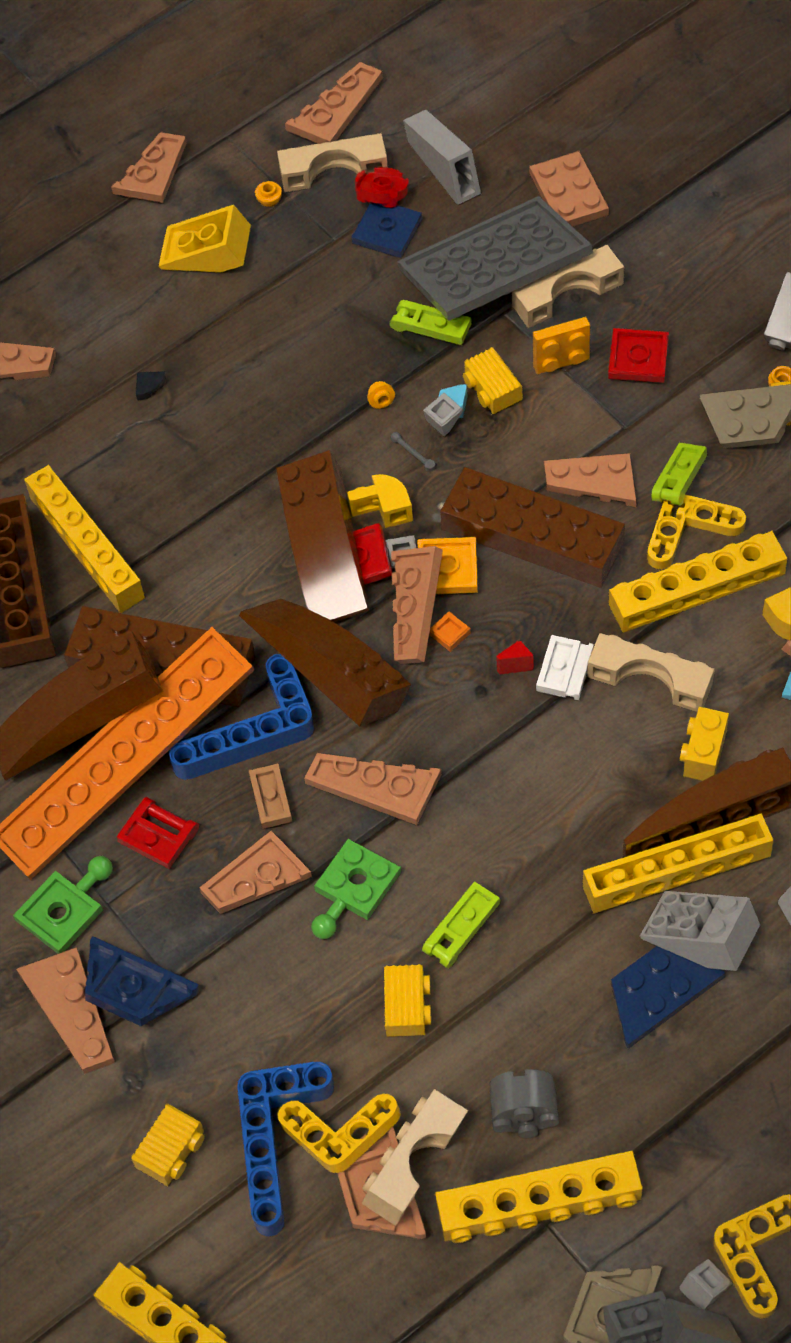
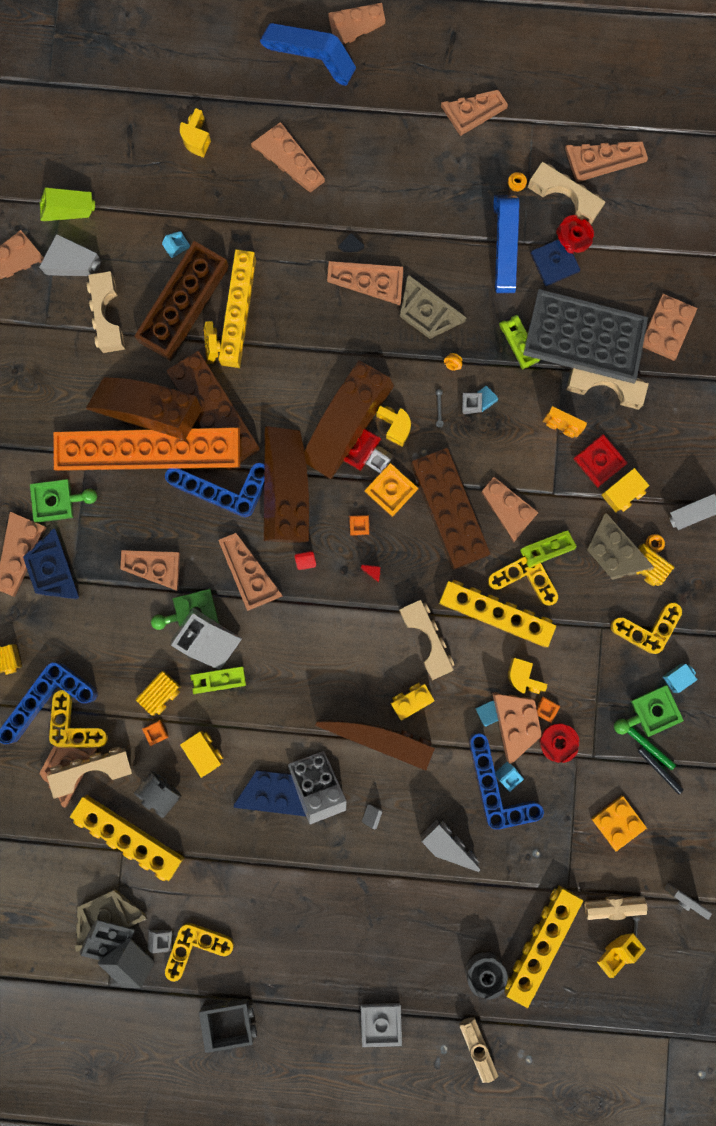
camera: 40 degrees right, 25 degrees up
(87, 589) = (212, 345): none -> yellow plate
(153, 840) = (124, 502): red plate -> none
(206, 395) = (373, 280): none -> nougat wing
(207, 242) = (456, 184): yellow slope -> none
(270, 796) = (196, 533): medium nougat plate -> none
(295, 211) = (507, 242): none -> blue beam
(300, 373) = (428, 311): none -> dark tan wing
(399, 885) = (205, 640): none -> light grey slope
(416, 588) = (364, 489): nougat wing -> none
(426, 714) = (305, 560): none -> slope
(444, 155) = (625, 244): light grey slope -> none
(447, 1052) = (155, 733): none -> orange tile
(492, 380) = (514, 406): yellow brick -> none
(528, 1014) = (202, 753): none -> yellow brick
(564, 667) = (391, 597): white plate -> none
(677, 863) = (338, 748): yellow brick -> none
(695, 356) = (625, 490): none -> yellow brick

